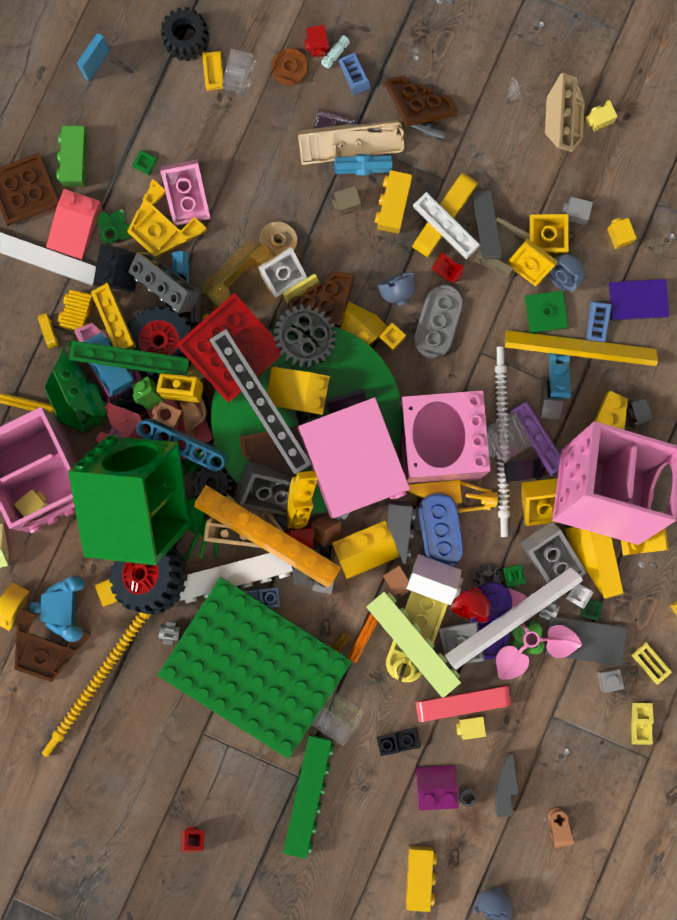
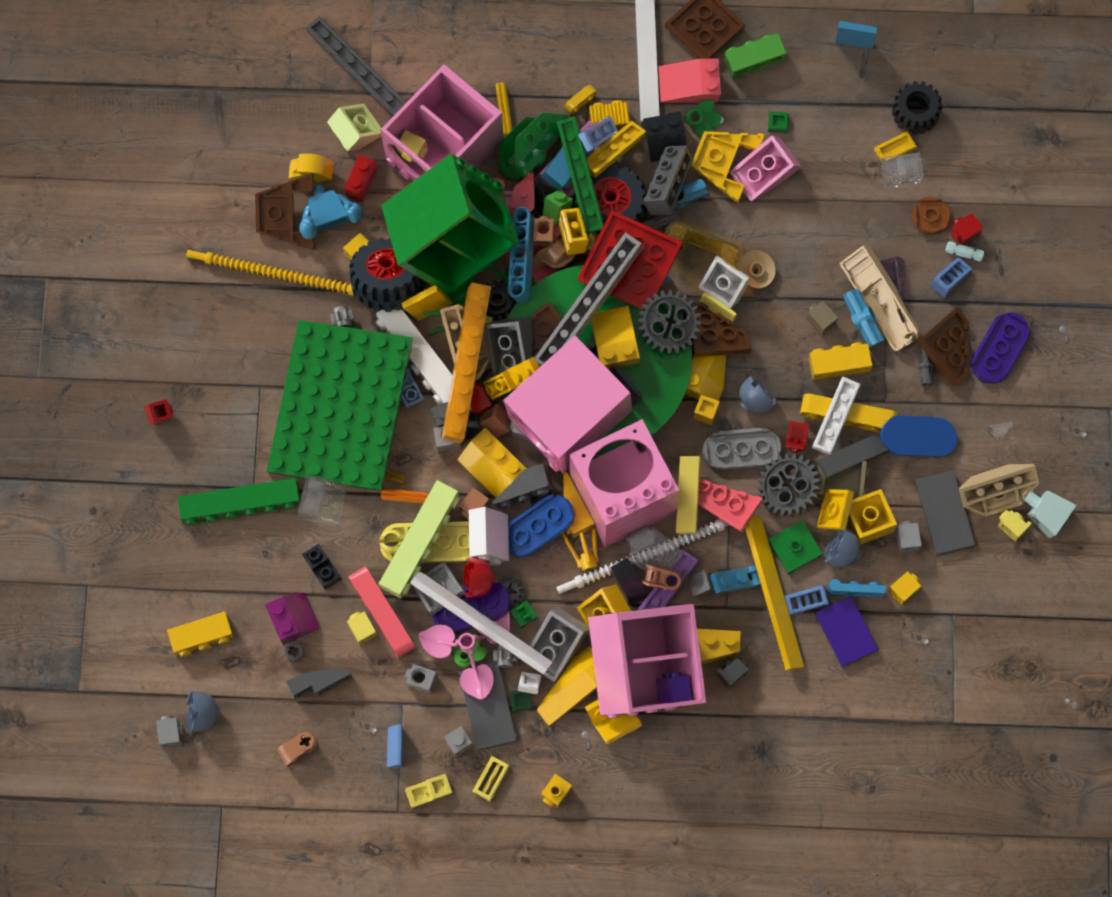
camera: 70 degrees right, 10 degrees down
(39, 563) = (360, 178): none -> red brick
(94, 326) = (598, 133): none -> light blue tile
(190, 550) = (428, 300): none -> yellow tile
(436, 59) = (1000, 348): none -> dark purple tile
(462, 383) = (688, 495): none -> light yellow tile
(484, 358) = (728, 505): none -> coral wing
(488, 276) = (804, 474): none -> dark grey gear
(491, 163) = (918, 436): none -> blue tile
(532, 441) = (660, 577): none -> nougat piece
(547, 689) = (425, 686): none -> light grey brick
(565, 171) = (944, 512): none -> dark grey tile
(591, 738) = (395, 746): none -> medium blue slope
(603, 81) = (1049, 511): none -> light aqua torso
(606, 275) = (855, 588): none -> dark azure plate
(651, 470) = (673, 688): none -> dark purple brick

